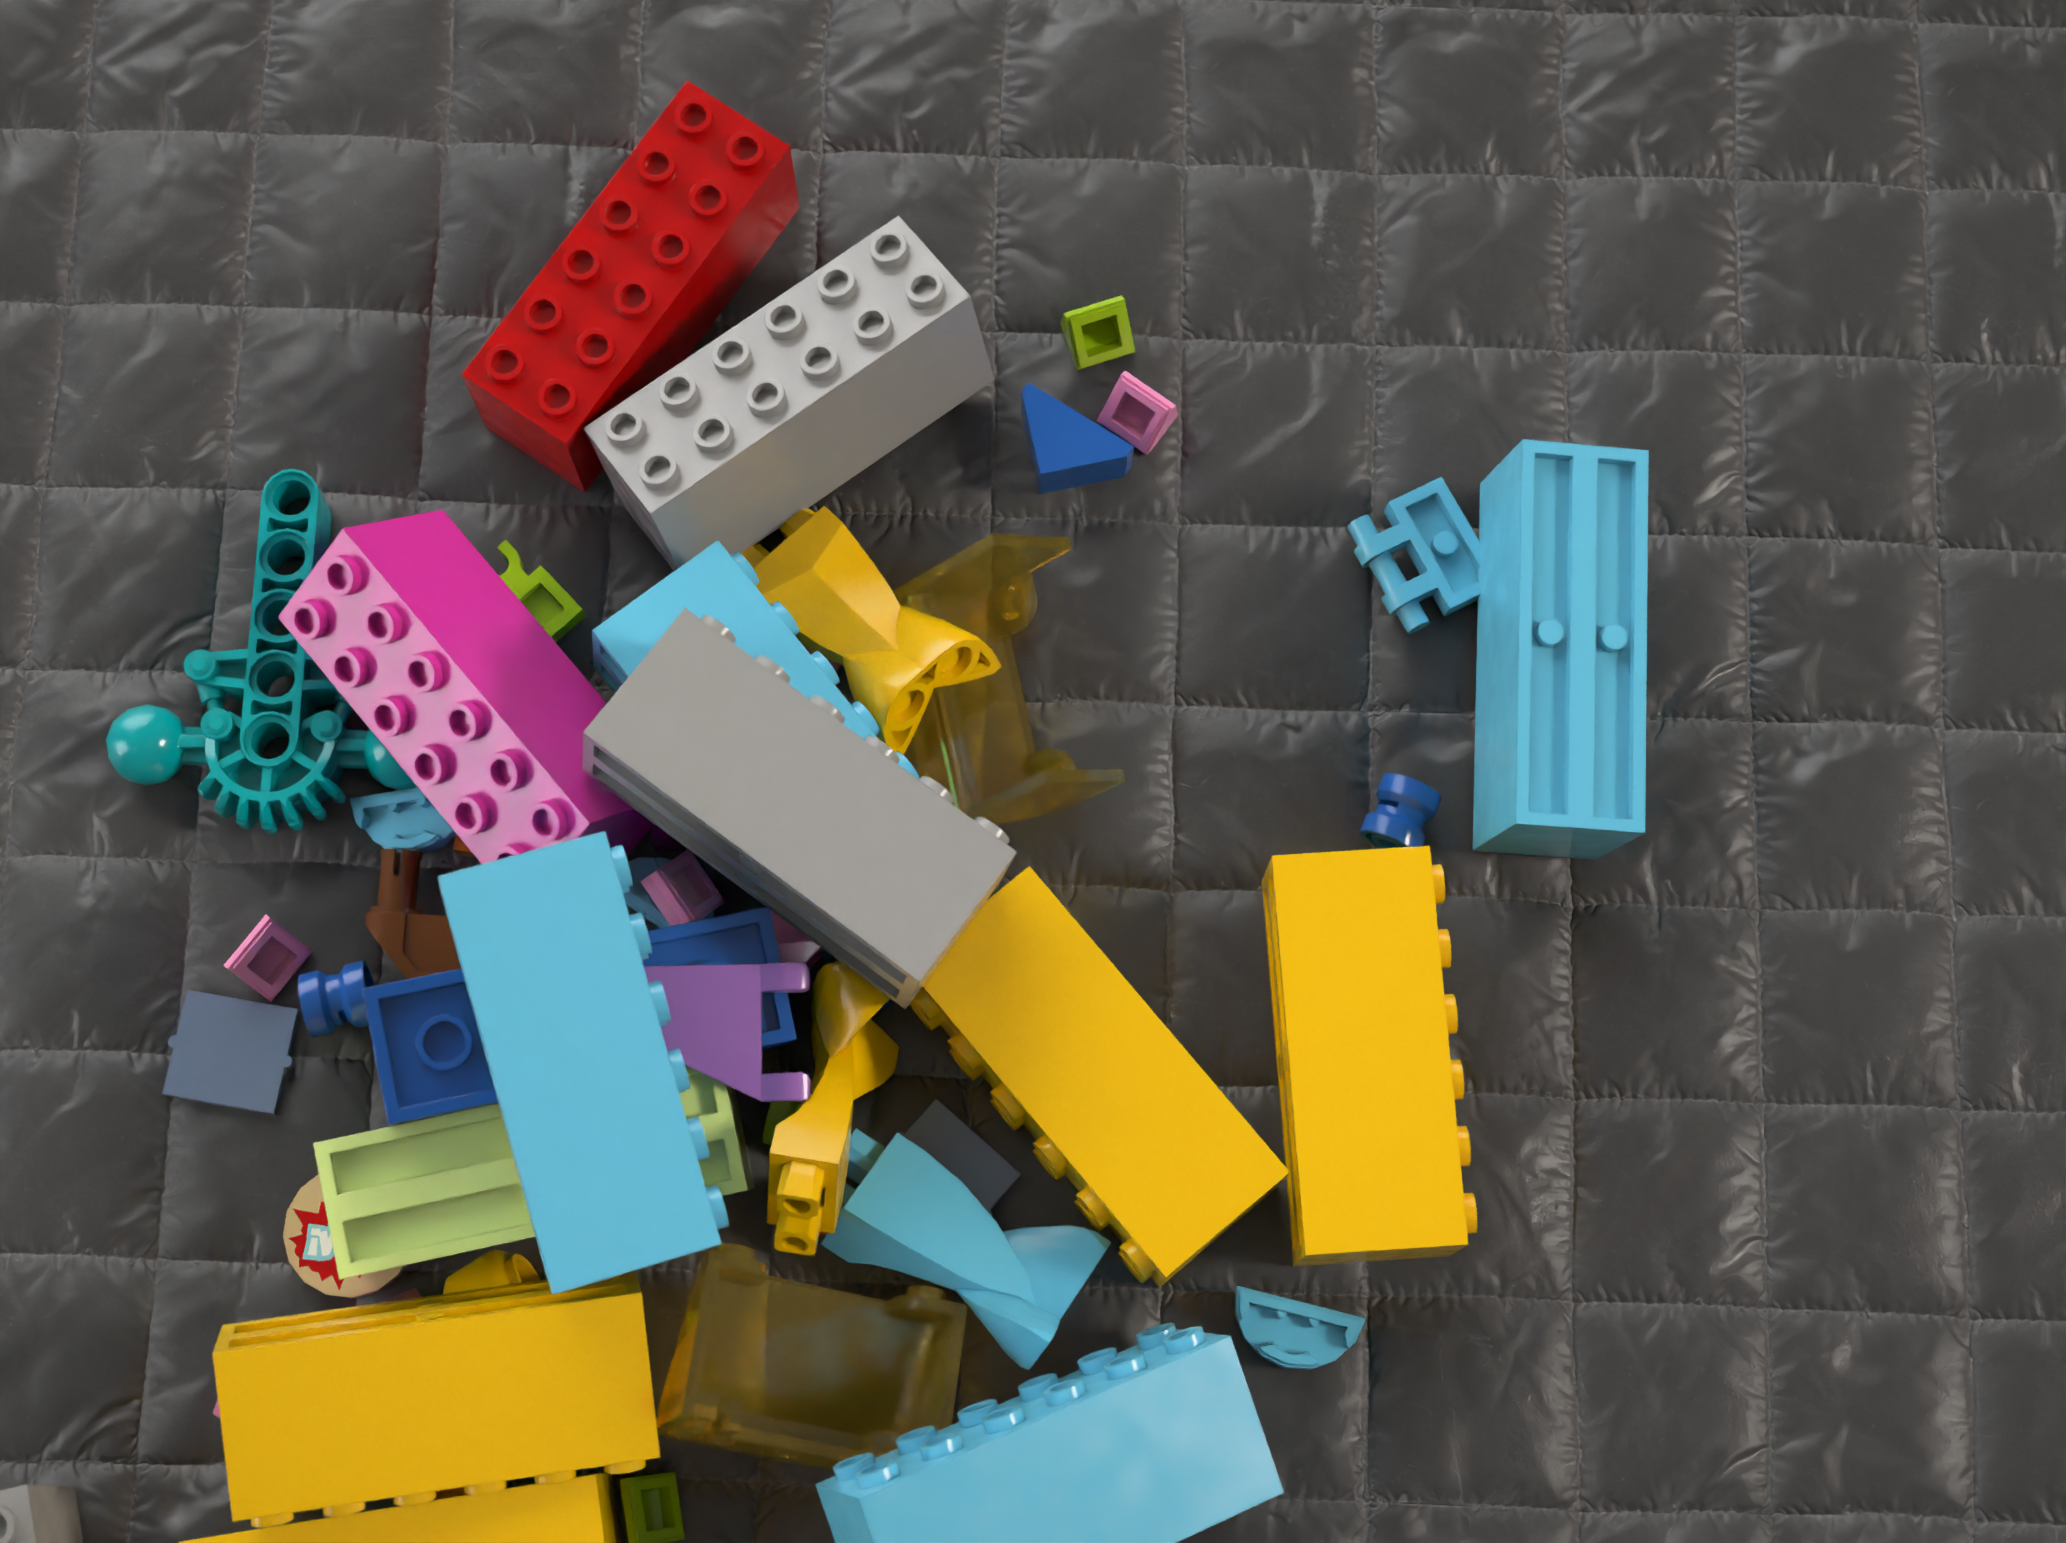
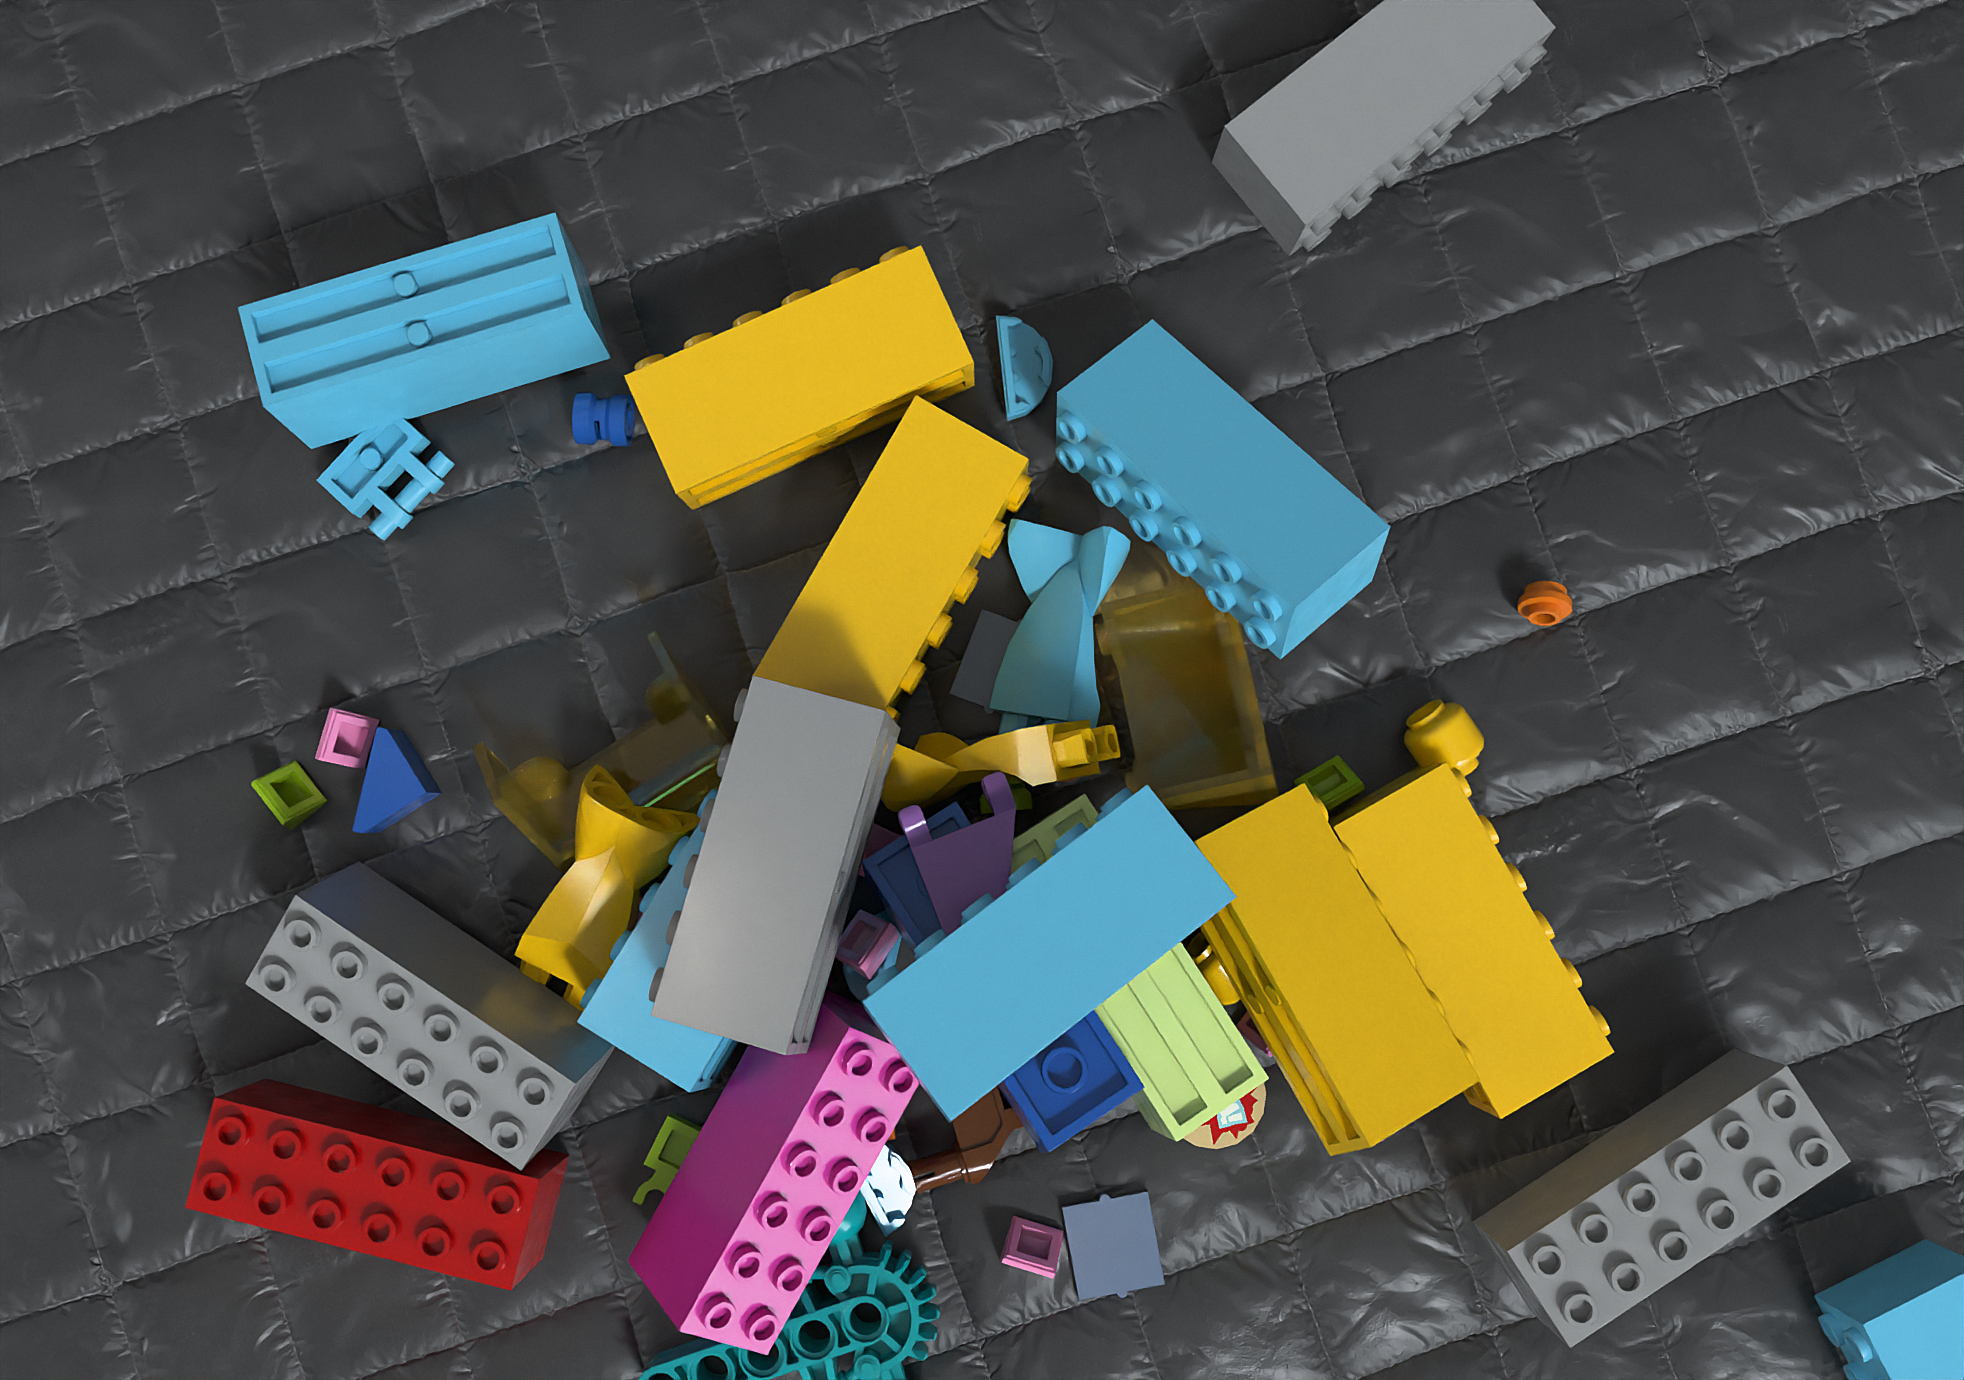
camera: 105 degrees left, 10 degrees up
(334, 998) = (1045, 1180): blue wheel -> none

